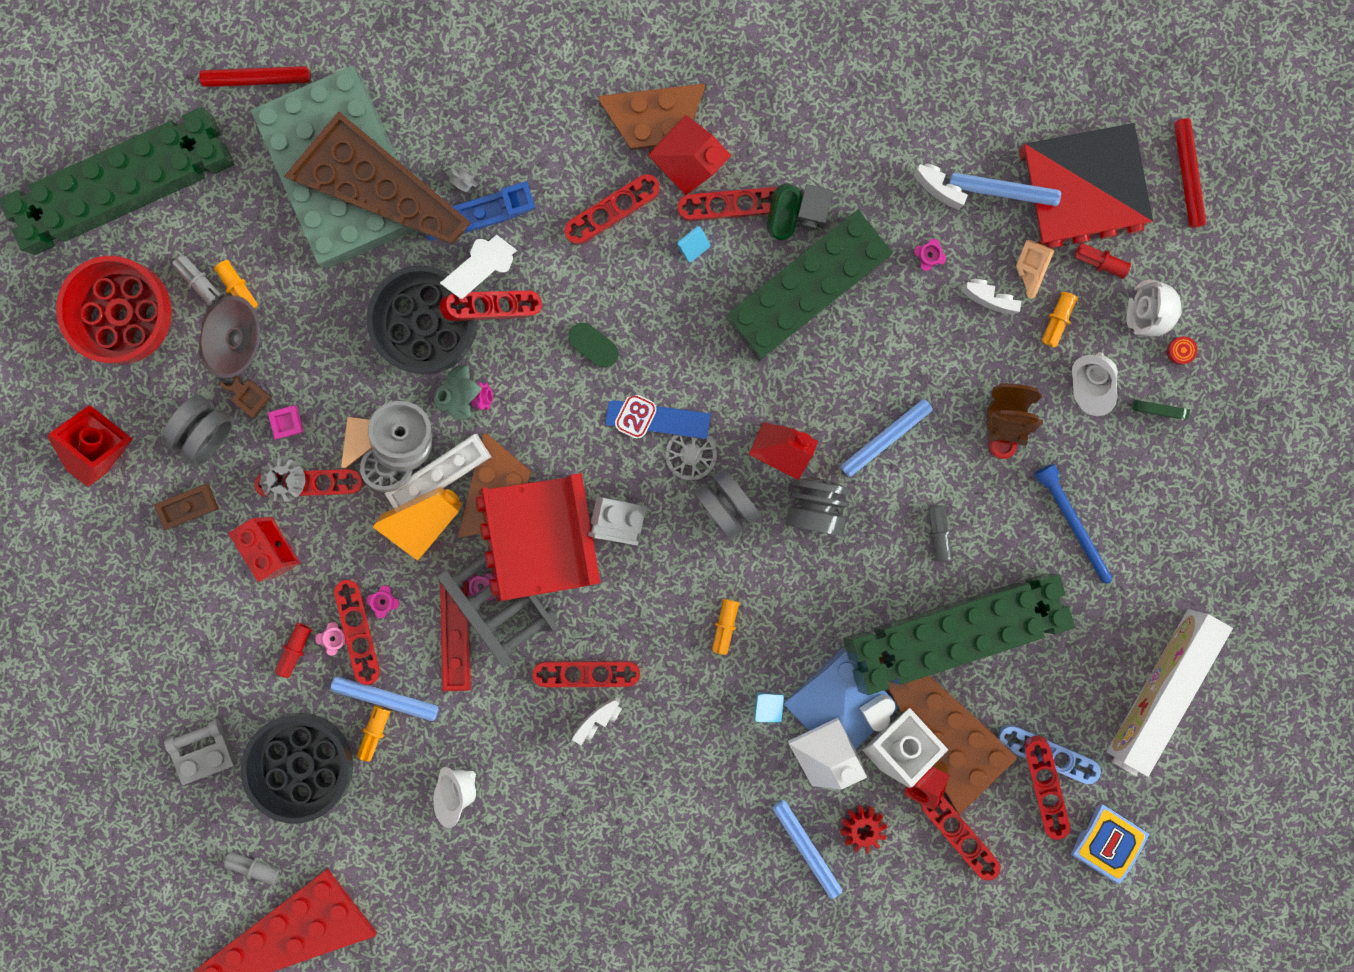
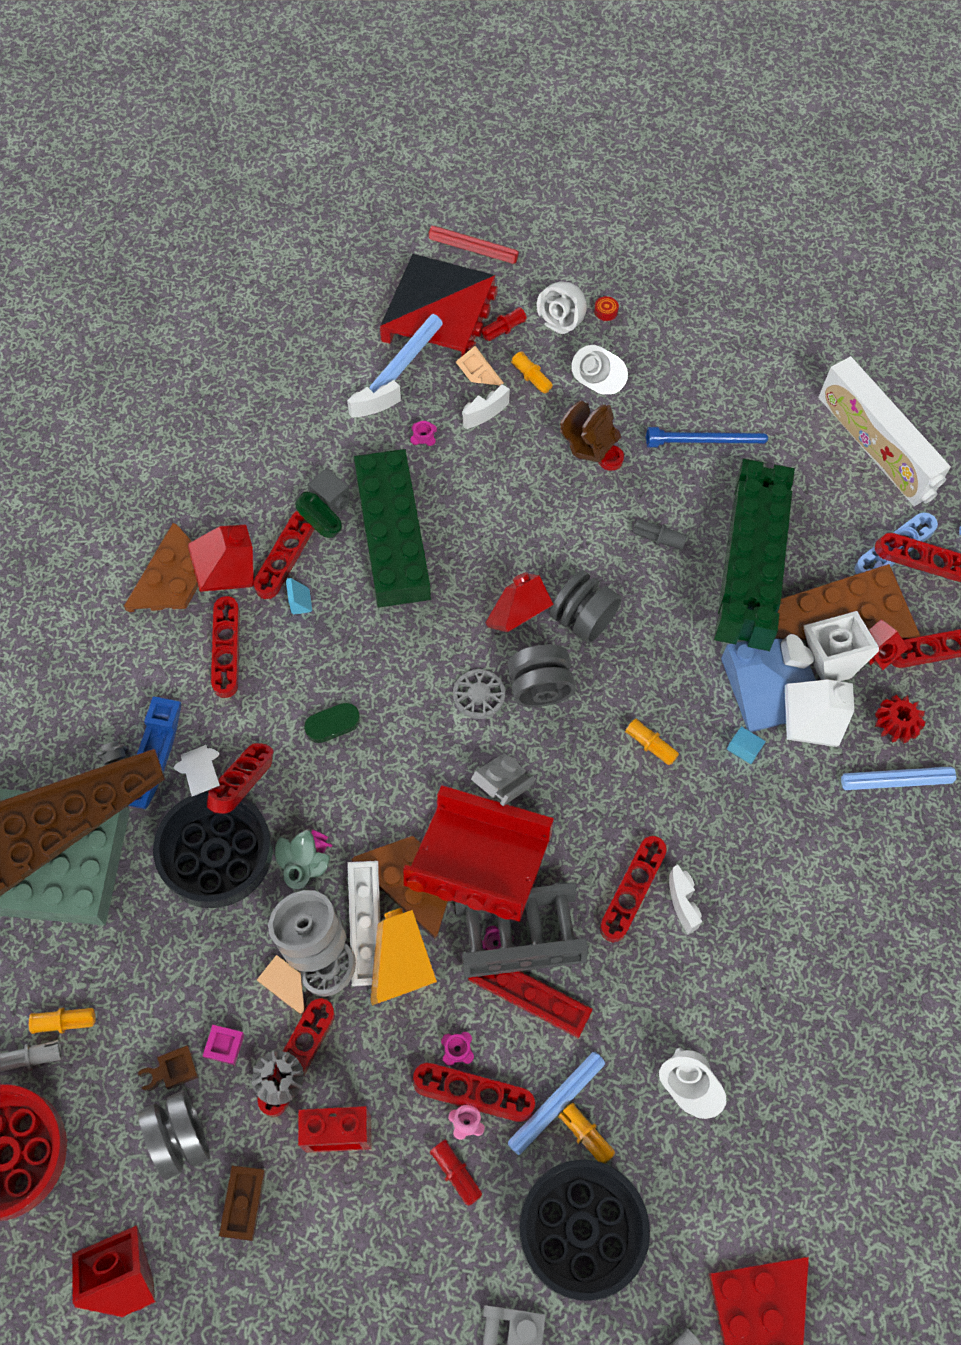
camera: 60 degrees left, 25 degrees down
(229, 336) = (105, 1051): flat silver hat -> none
(641, 415) = (419, 718): blue sticker -> none
(886, 438) = (555, 536): light blue axle -> none
(1160, 409) = (645, 339): dark green tile -> none

